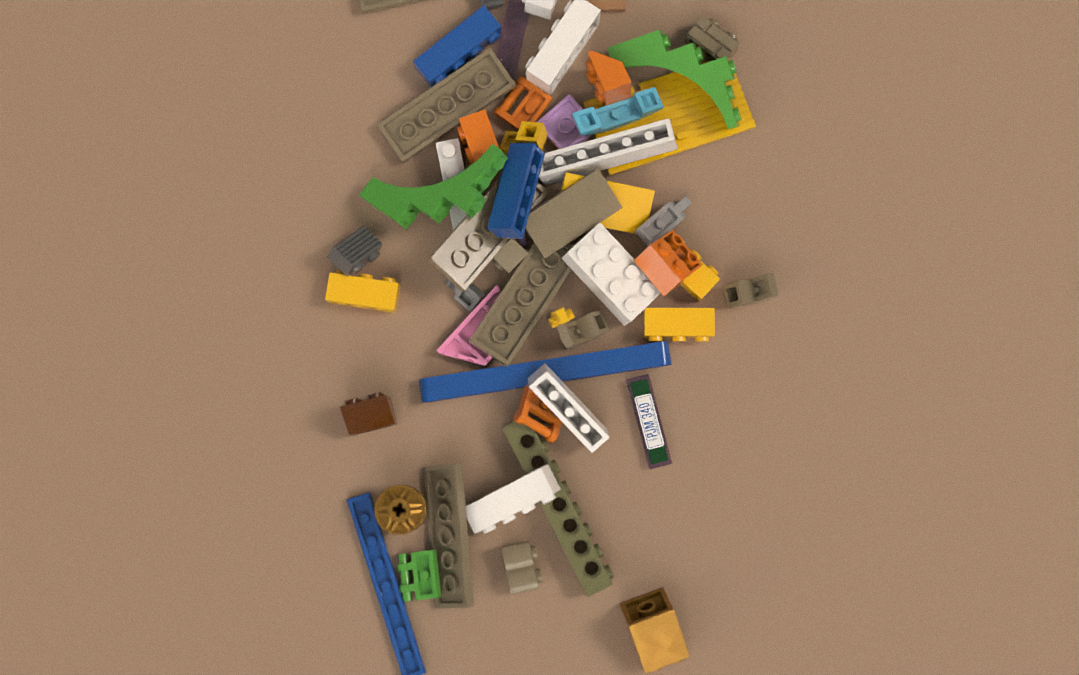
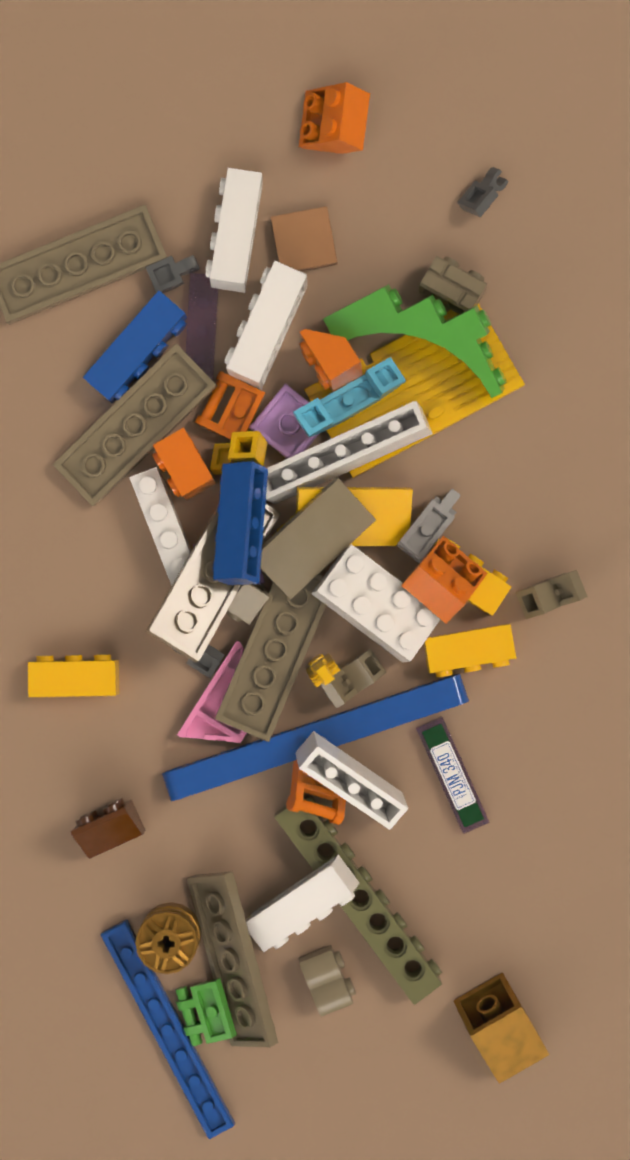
camera: 10 degrees left, 5 degrees up
(355, 251) = (54, 629): dark grey brick -> none
(436, 200) = (143, 553): bright green arch -> none

